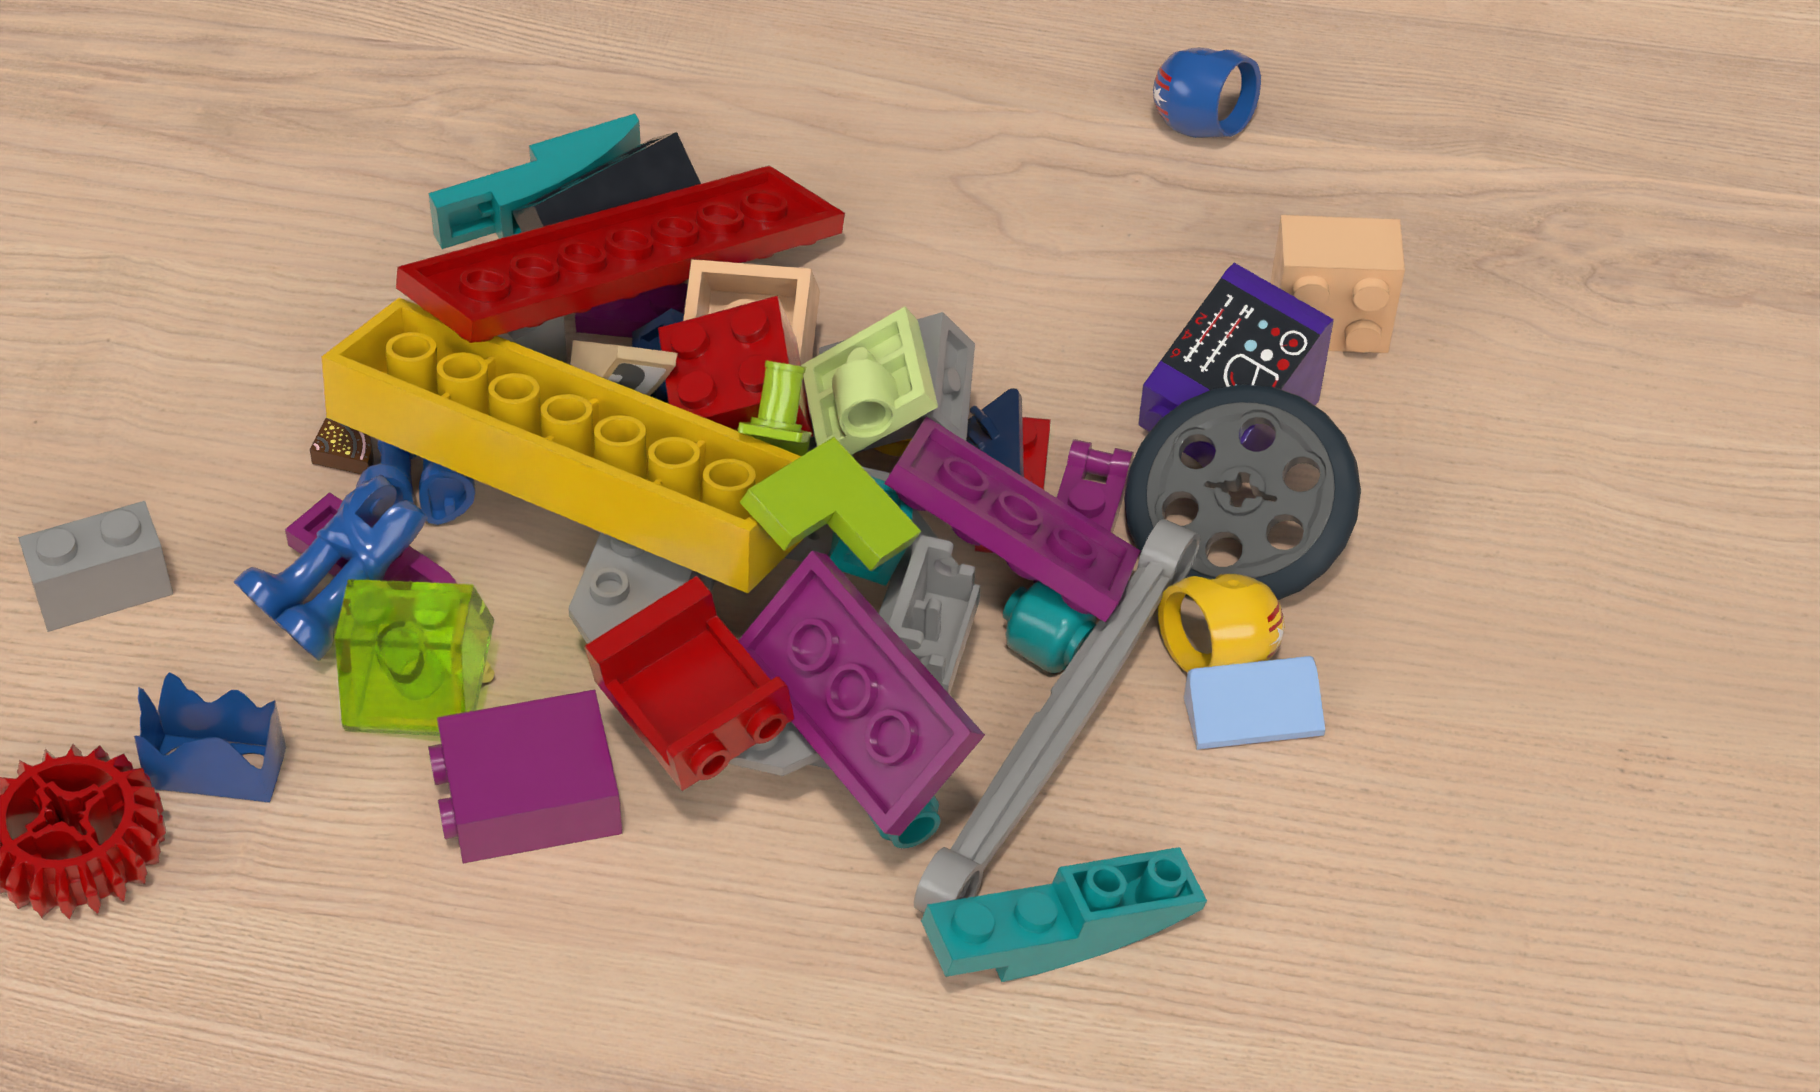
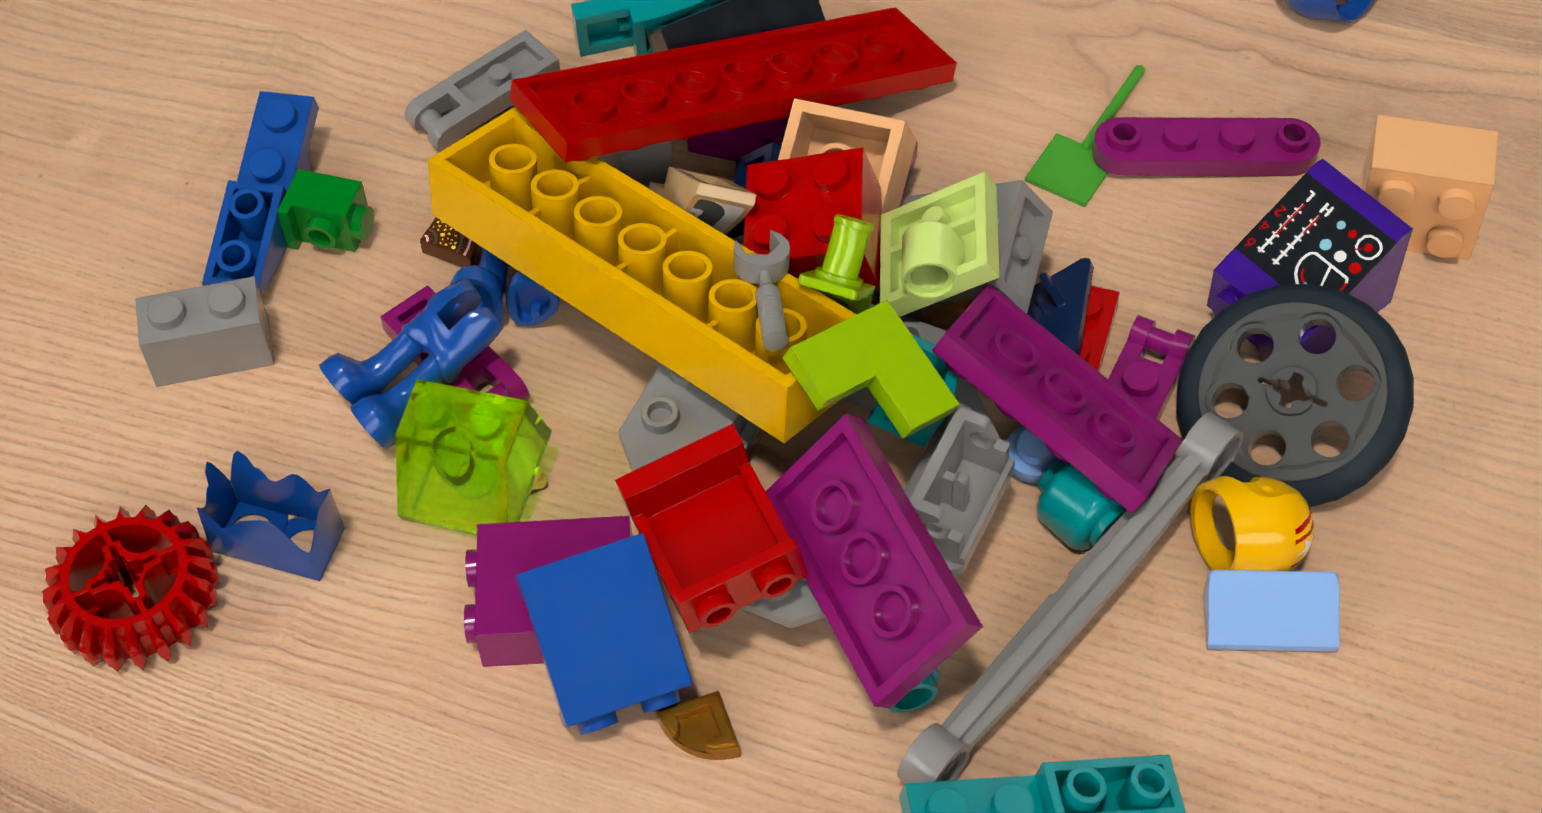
camera: 15 degrees right, 5 degrees up
(132, 414) = (248, 229): none -> blue slope
(202, 431) = (325, 212): none -> green brick
(342, 293) = (478, 90): none -> light grey plate
(593, 803) = (604, 633): none -> blue panel
(703, 887) = (701, 726): none -> pearl gold tile
(704, 425) = (766, 271): none -> light grey piece
(983, 307) = (1068, 166): none -> bright green piece
(996, 583) = (1030, 455): none -> light blue plate
(1110, 270) = (1205, 146): none -> magenta plate

